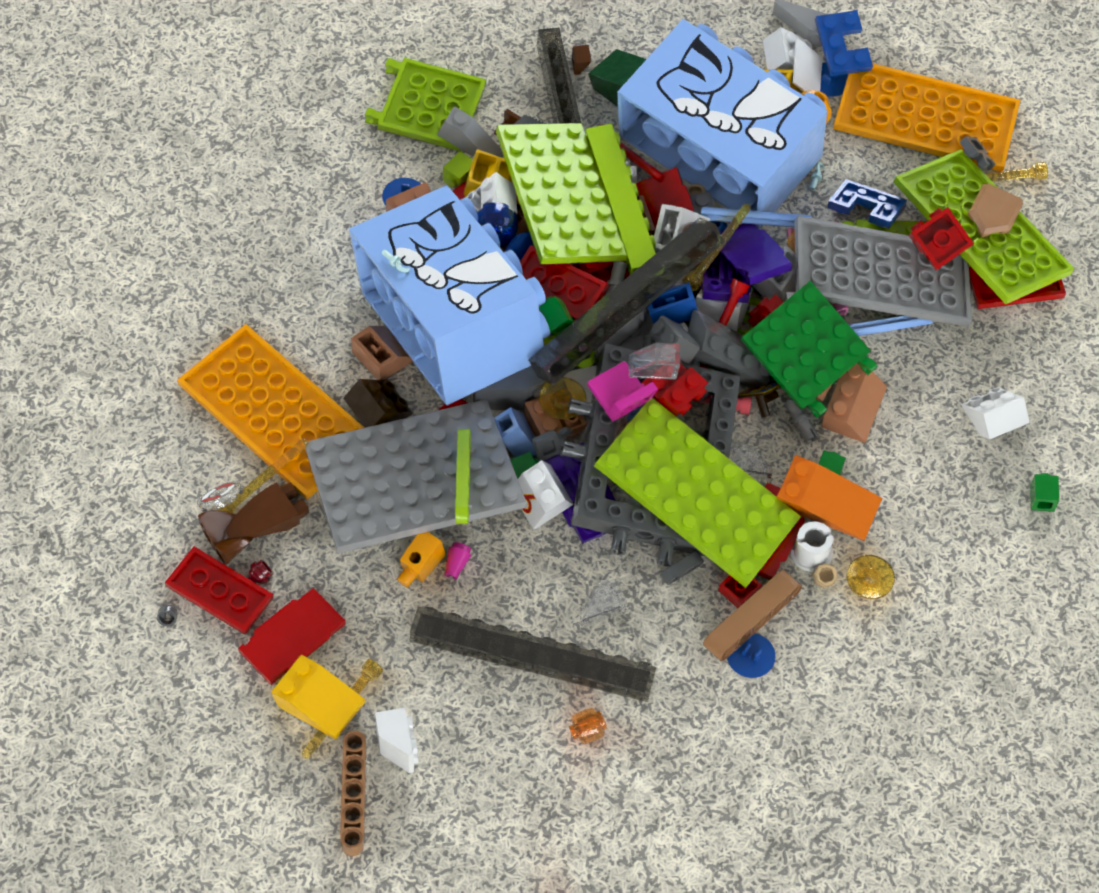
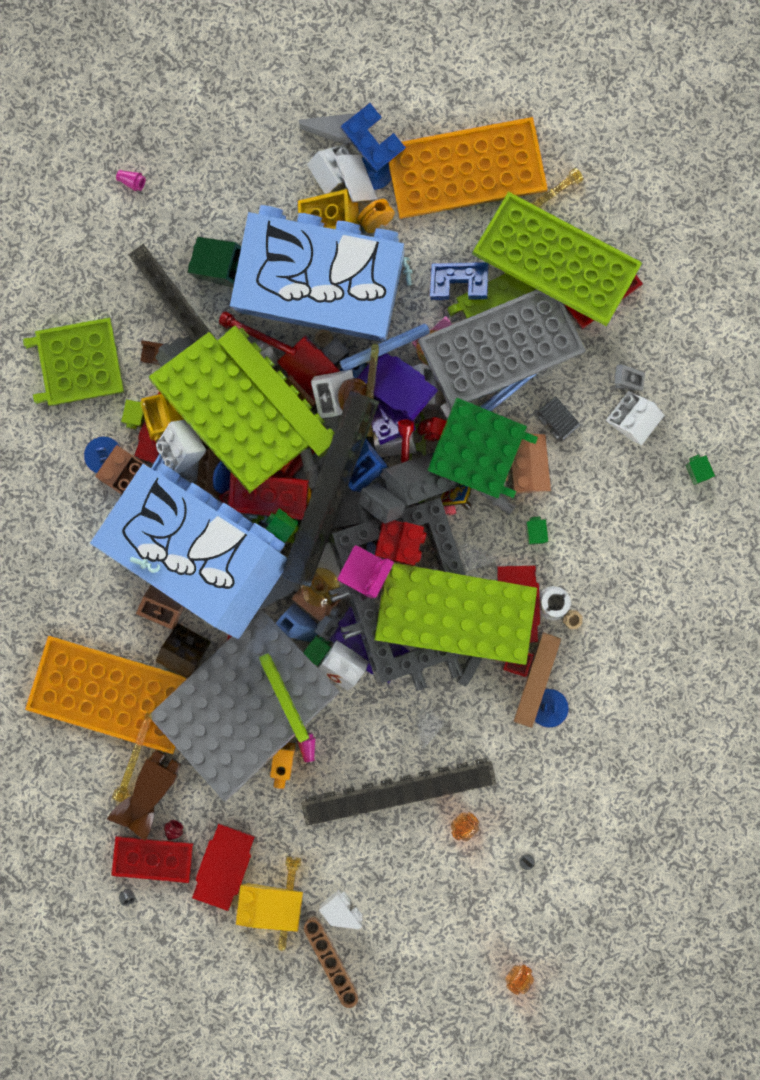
camera: 25 degrees left, 25 degrees up
(220, 496) = (112, 790): clear tile -> none
(467, 134) = (126, 382): light grey slope -> none
(501, 218) = (195, 468): clear blue cylinder -> none
(580, 58) = (173, 258): reddish brown slope -> none
(635, 805) = (530, 858): none -> dark grey hinge
(655, 361) = (378, 537): clear slope -> none
(828, 498) = (549, 562): orange slope -> none
(872, 567) = (612, 597): clear yellow dish -> none
(908, 375) = (558, 419): none -> dark grey brick
(940, 238) = (534, 296): red plate -> none
(976, 150) = (522, 189): dark grey plate -> none
(994, 210) = (561, 242): medium nougat tile -> none
(1006, 371) = (629, 378): none -> light grey slope

